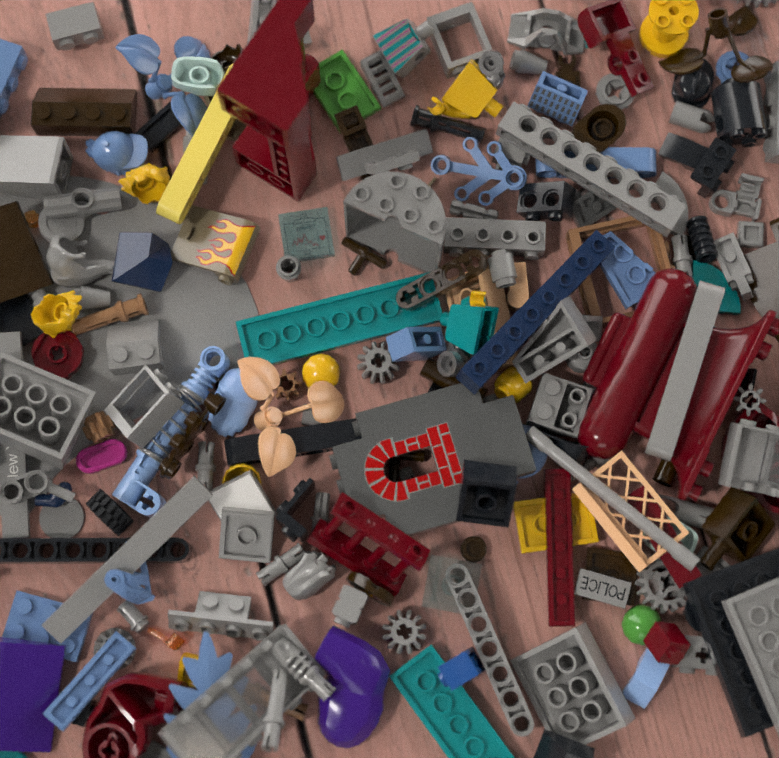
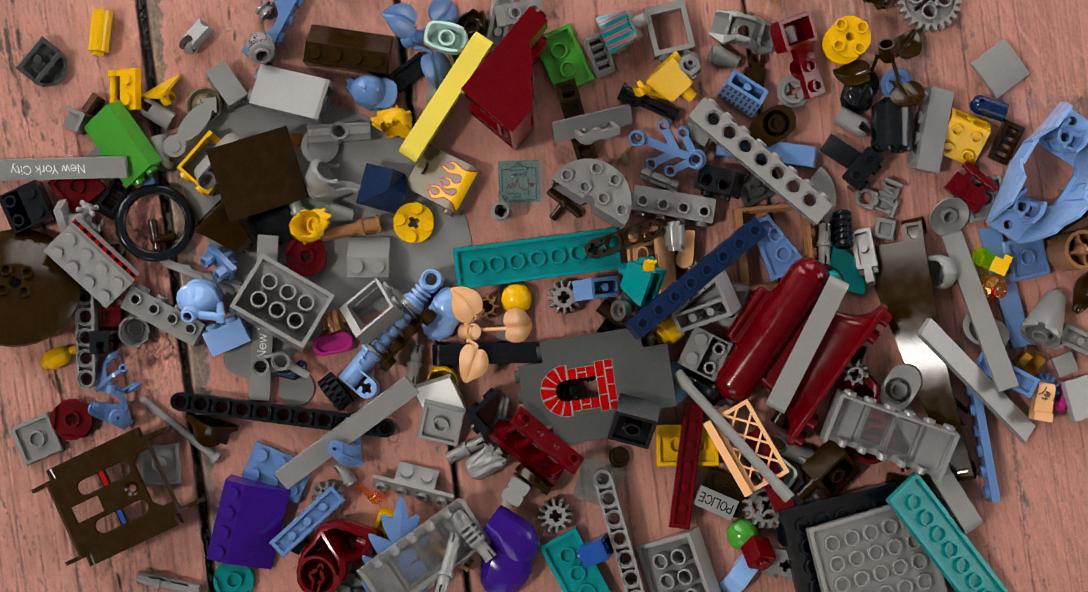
camera: 15 degrees right, 10 degrees up
(185, 284) = (425, 223): none -> yellow plate

